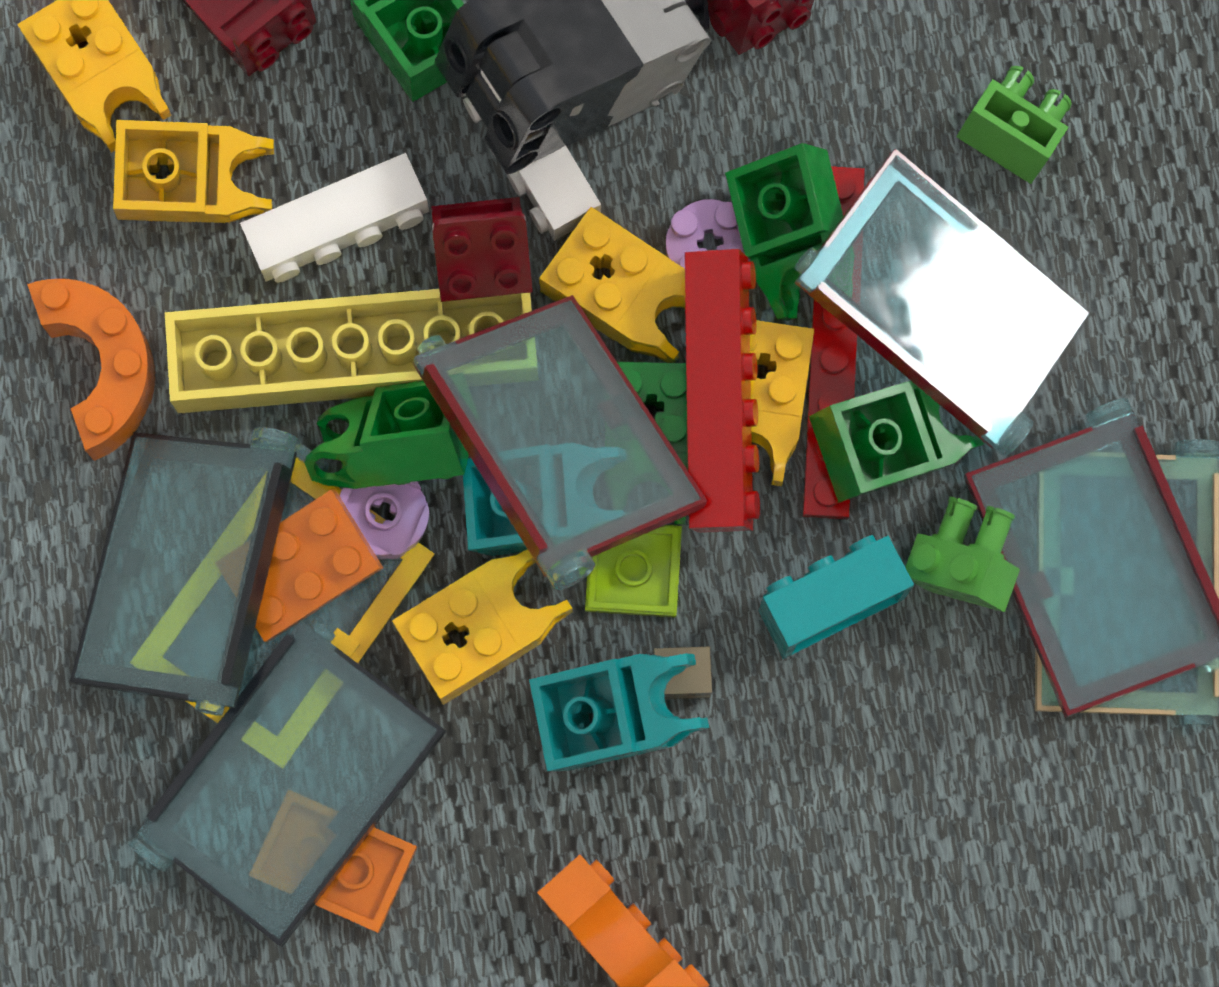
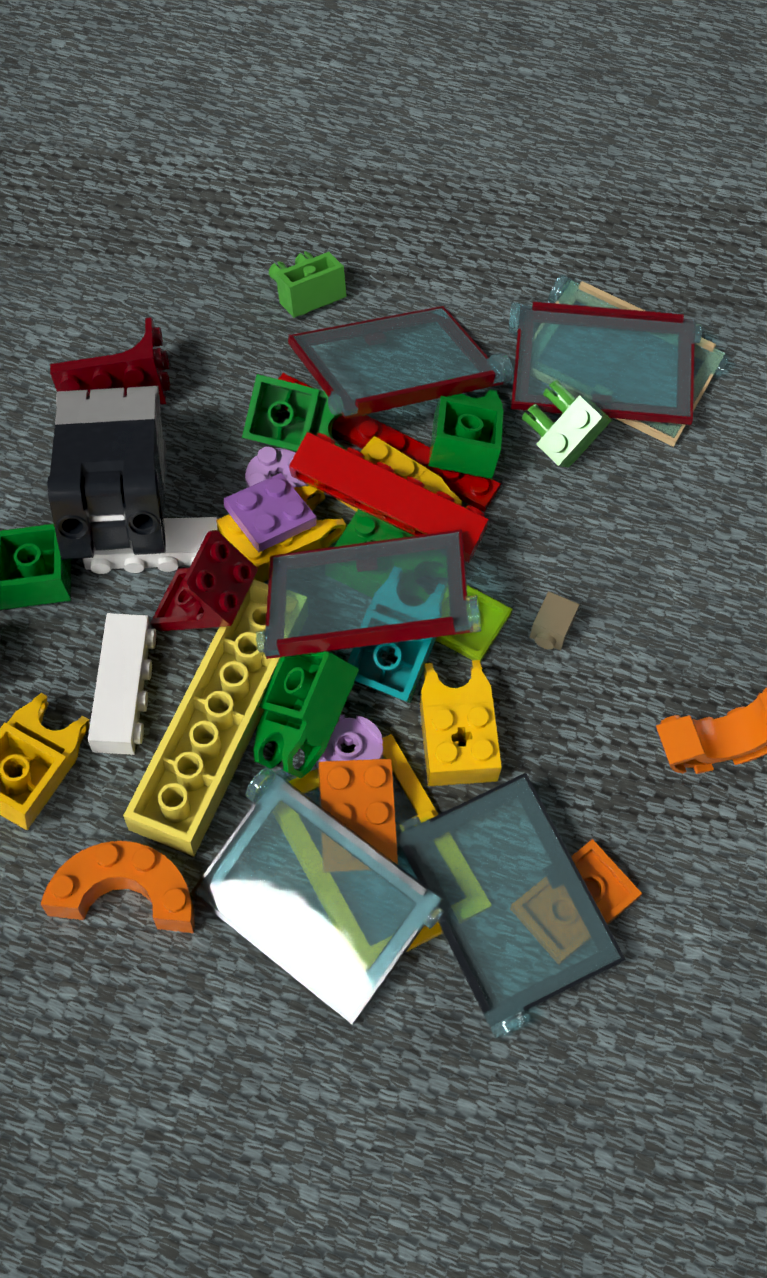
camera: 65 degrees left, 15 degrees down
(626, 707) = (565, 652): teal brick -> none
(627, 263) = (270, 512): none -> medium lavender plate
(834, 594) = (552, 506): teal piece -> none

